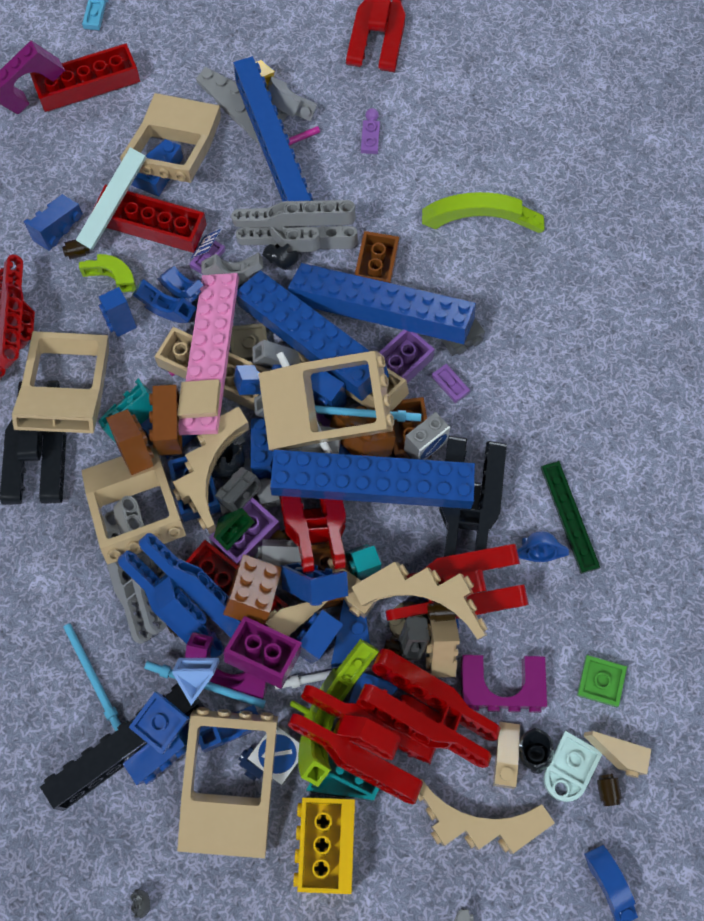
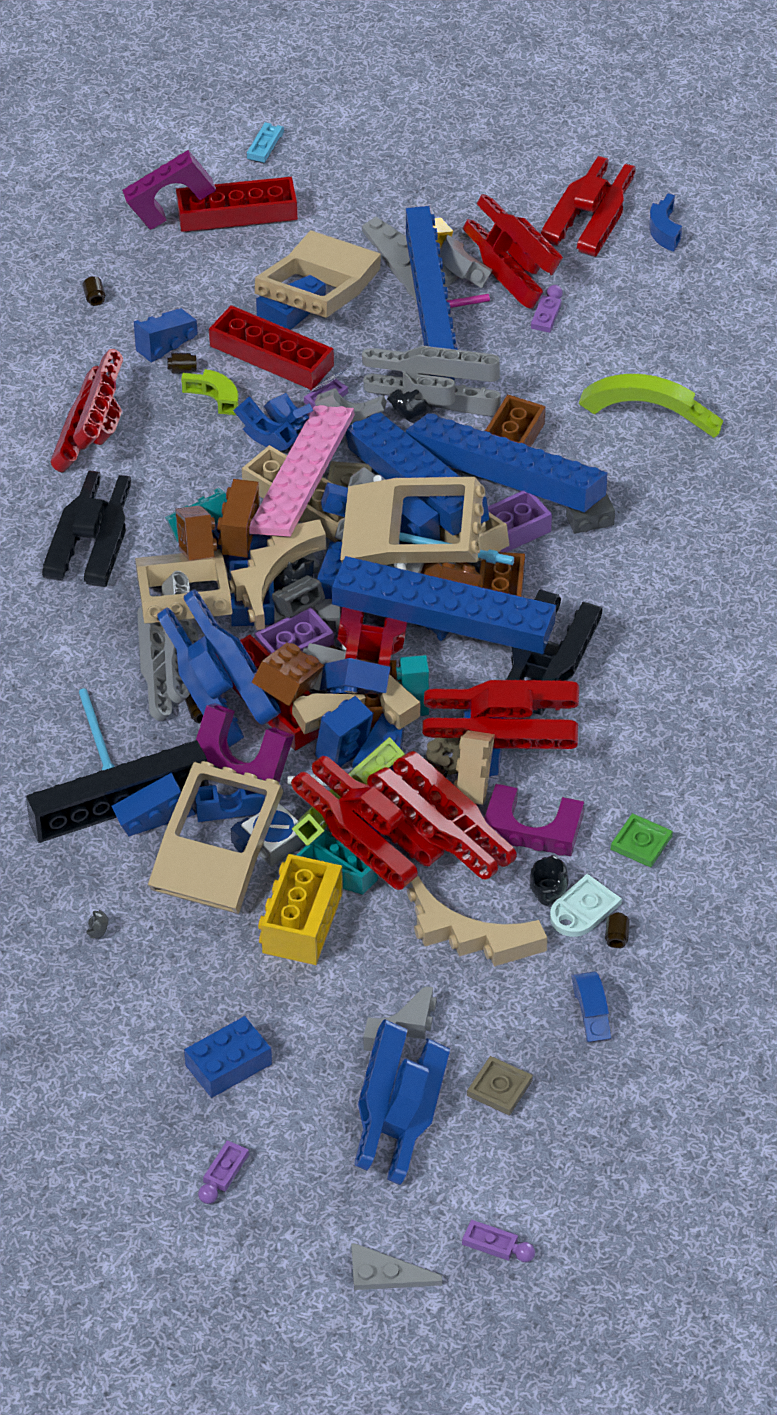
camera: 15 degrees right, 20 degrees down
(61, 407) = (131, 491): tan window -> none
(111, 198) = (234, 316): light aqua tile -> none
(116, 312) = (212, 422): blue wedge -> none
(159, 722) = (161, 762): blue tile -> none
(166, 671) = (179, 737): medium azure bar -> none
(194, 675) = (207, 735): light blue slope -> none
(199, 399) = (279, 500): tan tile -> none
(232, 527) = (283, 626): dark green slope -> none
(262, 652) = (283, 718): magenta brick -> none
(336, 74) = (522, 242): none -> red beam
(414, 638) = (446, 749): dark grey brick -> none
(427, 437) = (515, 576): light grey piece -> none
(439, 612) = (481, 722): dark brown brick -> none
(441, 35) = (661, 227): none -> blue arch
(450, 383) = (563, 555): medium lavender plate -> none
(452, 594) = (438, 684): tan arch -> none
(507, 756) = (513, 885): tan slope -> none
(541, 548) = (613, 715): blue hat -> none
(570, 517) = (657, 697): dark green tile -> none
(622, 754) = (639, 898): tan slope -> none

